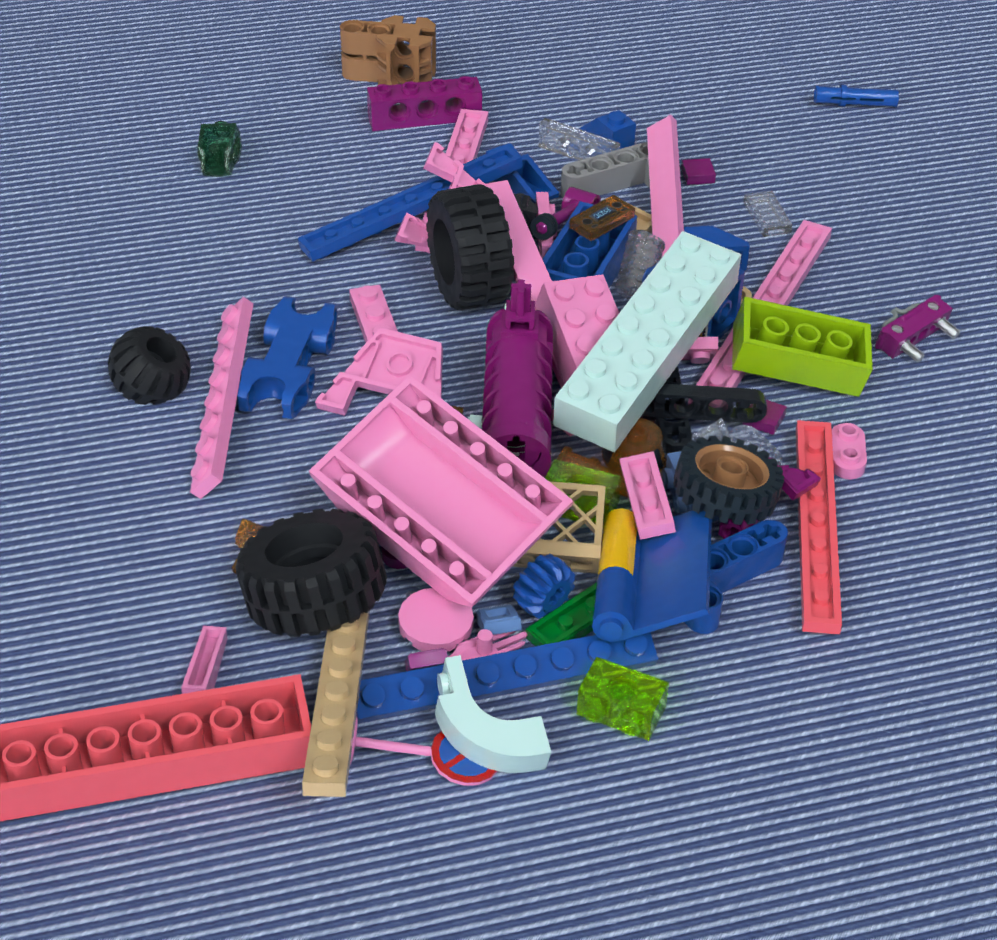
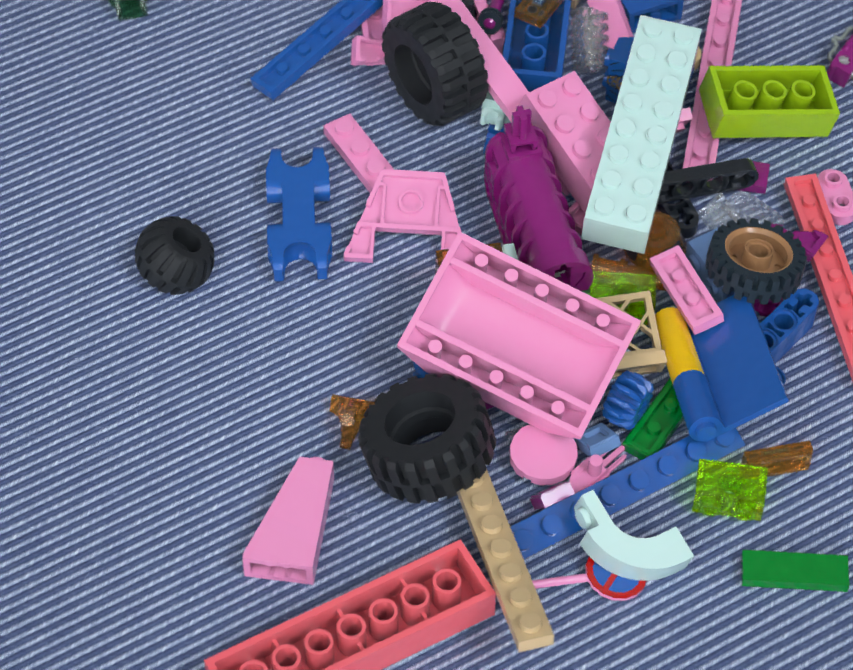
camera: 15 degrees left, 10 degrees up
(144, 630) = (293, 529): none -> bright pink slope
(205, 660) = (360, 545): bright pink piece -> none
(221, 399) = (256, 272): bright pink plate -> none
(666, 798) = (795, 570): none -> green tile
(691, 680) = (781, 458): none -> clear orange tile

